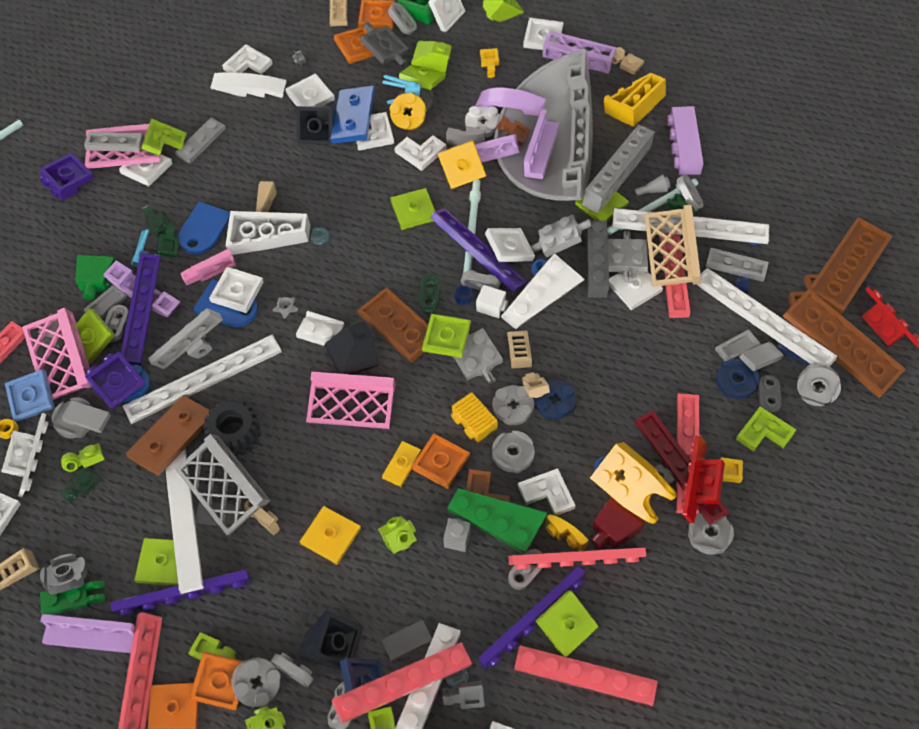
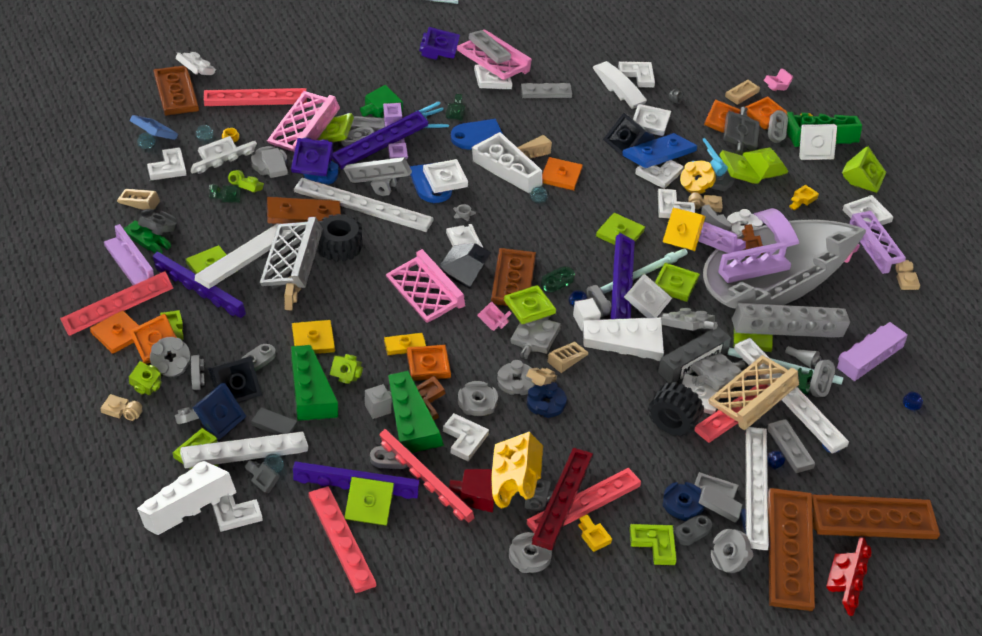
camera: 45 degrees right, 15 degrees down
(29, 395) = (263, 129): medium blue plate -> none
(160, 133) = (520, 62): lime plate -> none
(167, 244) = (445, 123): dark green plate -> none
(209, 267) = (445, 153): bright pink hinge -> none
(309, 200) = (561, 173): none -> orange plate
(315, 598) = (261, 355): none -> light grey plate
(394, 580) = (311, 388): none -> green wedge
(401, 682) = (236, 425): coral plate -> none
(433, 371) = (493, 316): none -> bright pink bracket
(436, 126) = (714, 201): none -> tan plate
(474, 417) = (481, 360): yellow brick -> none
(505, 211) = (677, 281): none -> lime plate
(560, 528) = (440, 456): yellow slope -> none
(637, 100) = (873, 300): yellow wedge -> none
(652, 315) = (676, 409): none -> black tyre
(703, 482) = (557, 507): red bracket -> none
(749, 151) = (913, 401): none -> clear blue plate

